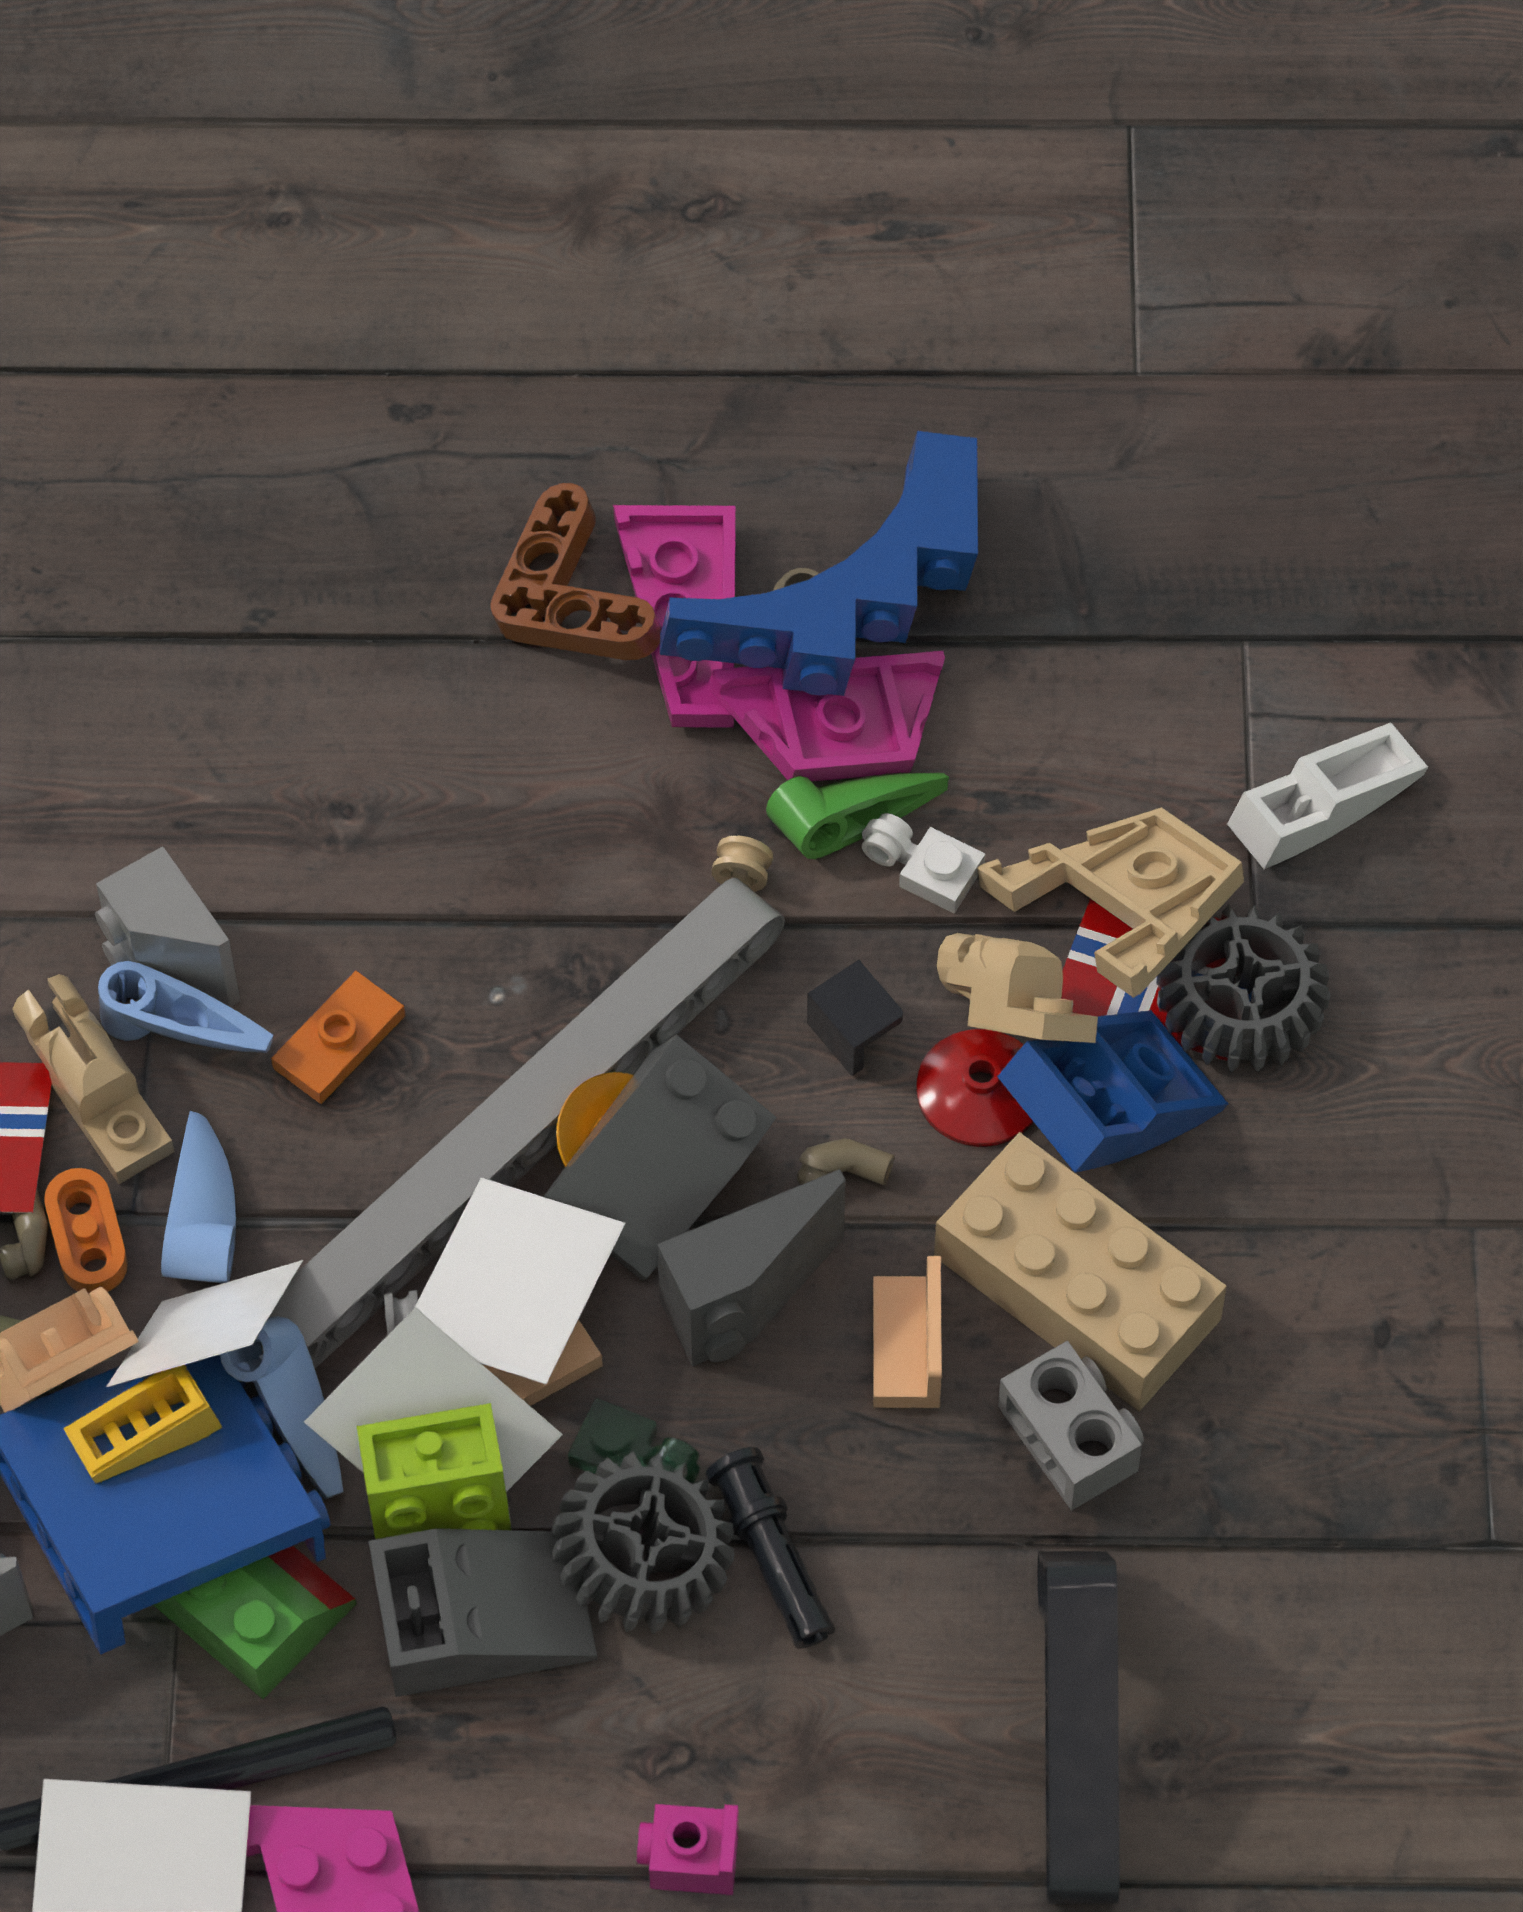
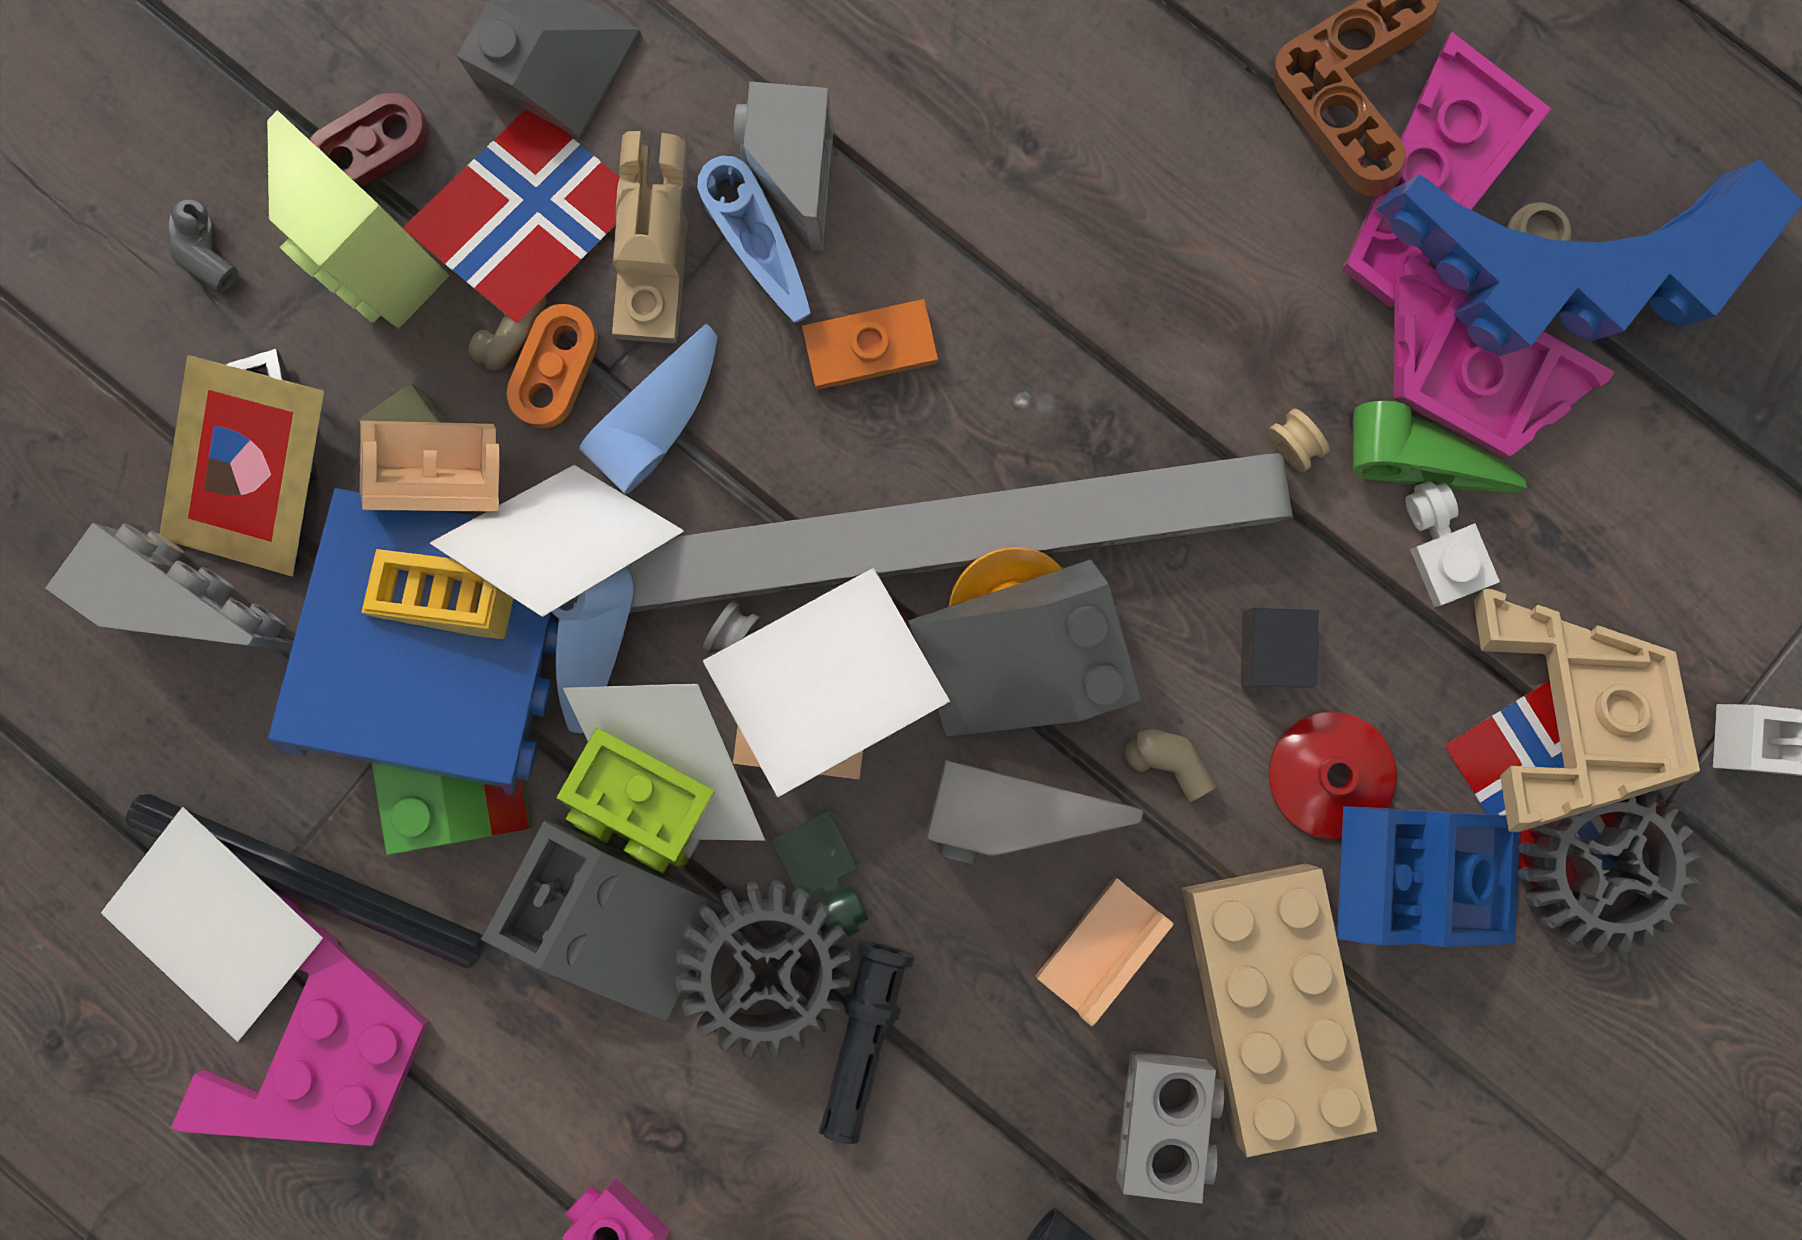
camera: 45 degrees right, 25 degrees up
(1012, 988) = (1418, 742): tan plate -> none

